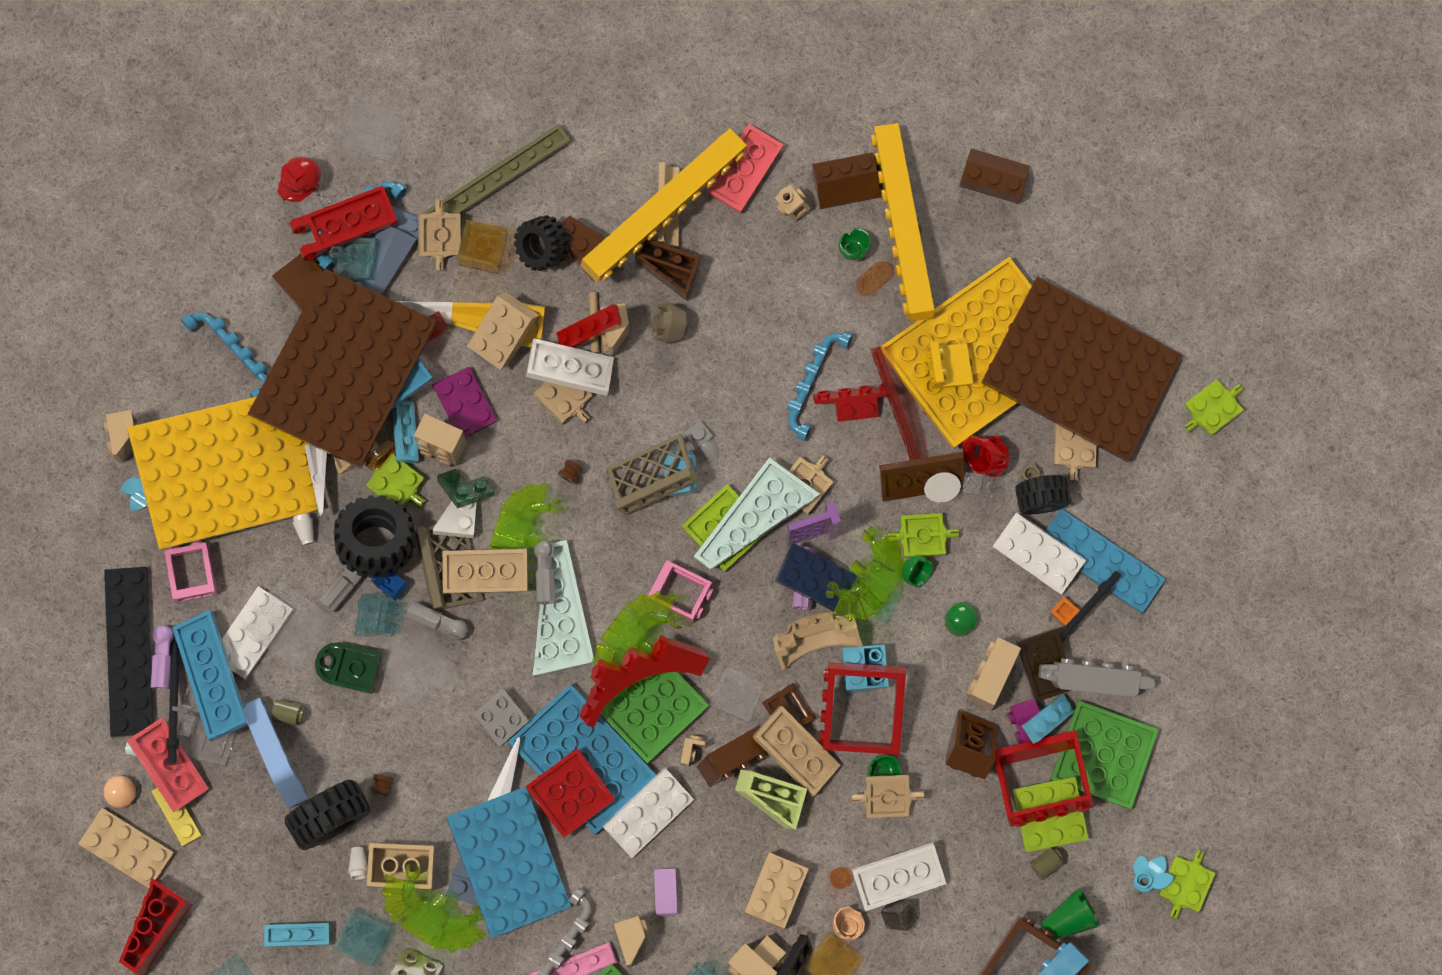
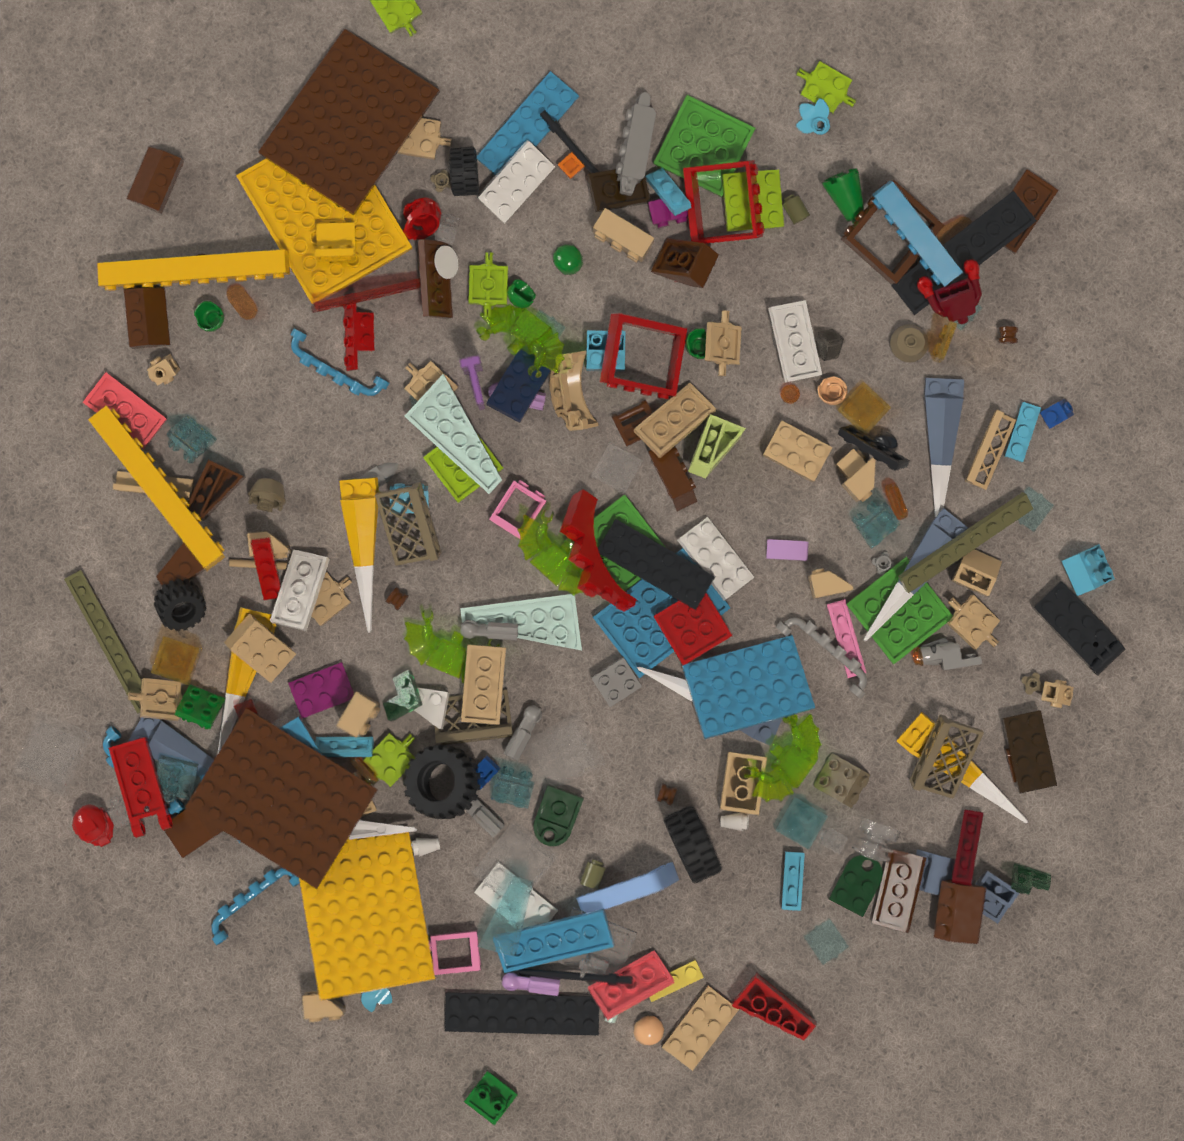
camera: 80 degrees left, 10 degrees up
(34, 626) = (491, 1097): none -> green plate
(227, 622) = (507, 923): none -> clear light blue wing
(434, 275) = (199, 707): none -> green plate
(634, 745) = (655, 564): none -> black plate
(647, 425) = (360, 519): none -> yellow plate
(688, 753) = (665, 517): tan bracket -> none
(721, 237) = (191, 438): none -> clear light blue plate

